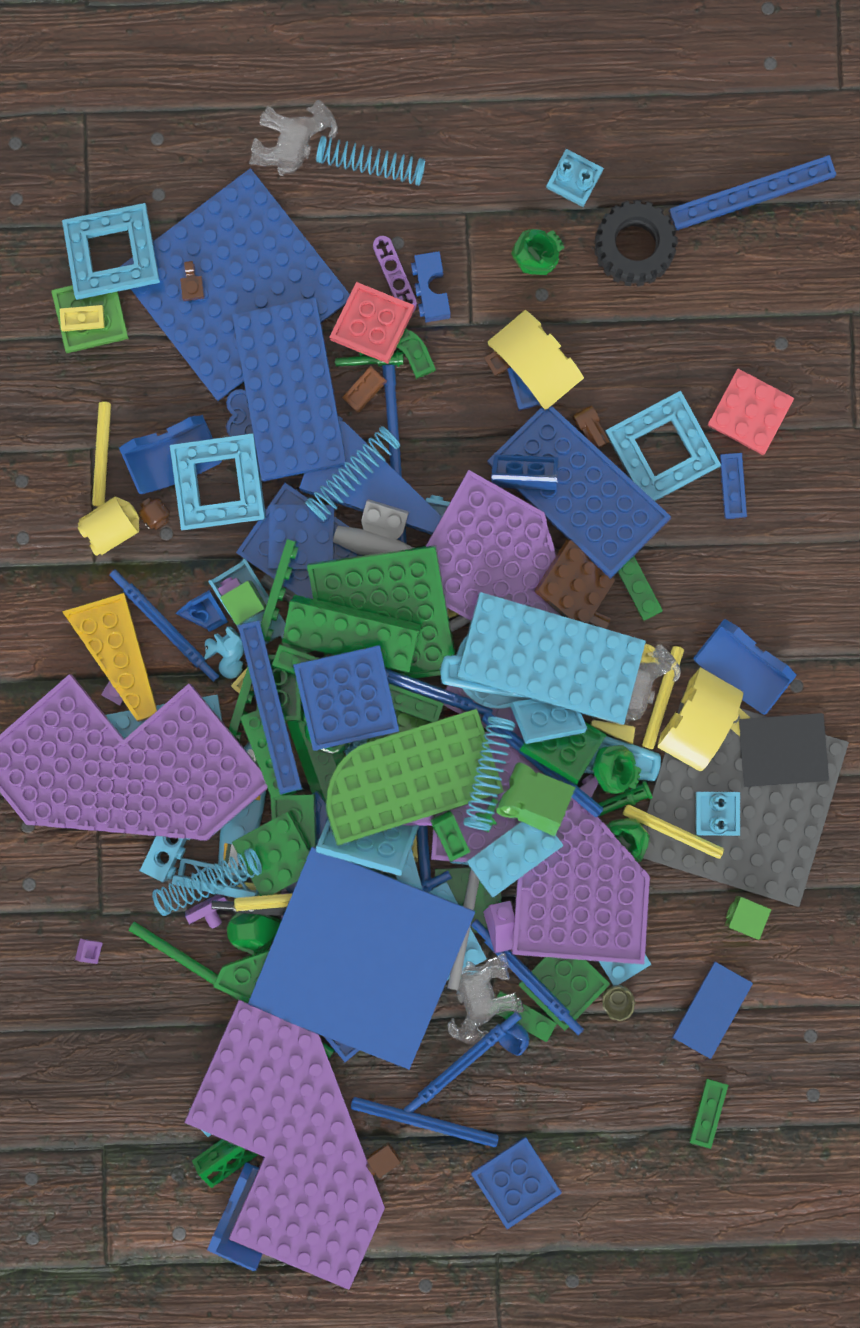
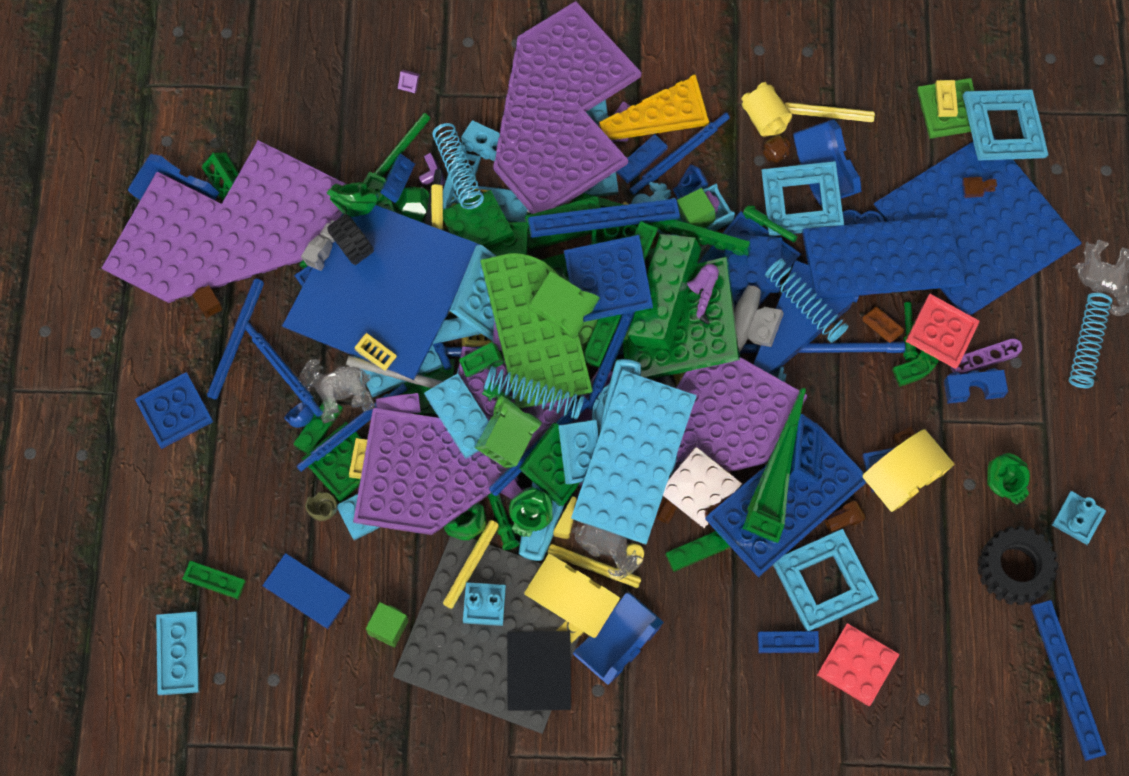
camera: 90 degrees right, 15 degrees down
(171, 667) = (642, 158): none -> blue plate
(219, 952) = (397, 178): none -> blue plate
(248, 527) = (762, 219): none -> green pin
(261, 992) = (353, 198): none -> green helmet
(313, 999) = (350, 239): none -> black tyre
(315, 1033) = (318, 249): none -> light grey piece
(339, 587) = (704, 280): none -> medium lavender piece
(385, 747) = (563, 304): none -> bright green piece
(429, 967) = (374, 343): none -> light yellow slope
(564, 965) = (358, 458): none -> light yellow plate
(592, 508) = (769, 501): none -> green plate
(792, 1143) = (177, 653): none -> medium azure plate

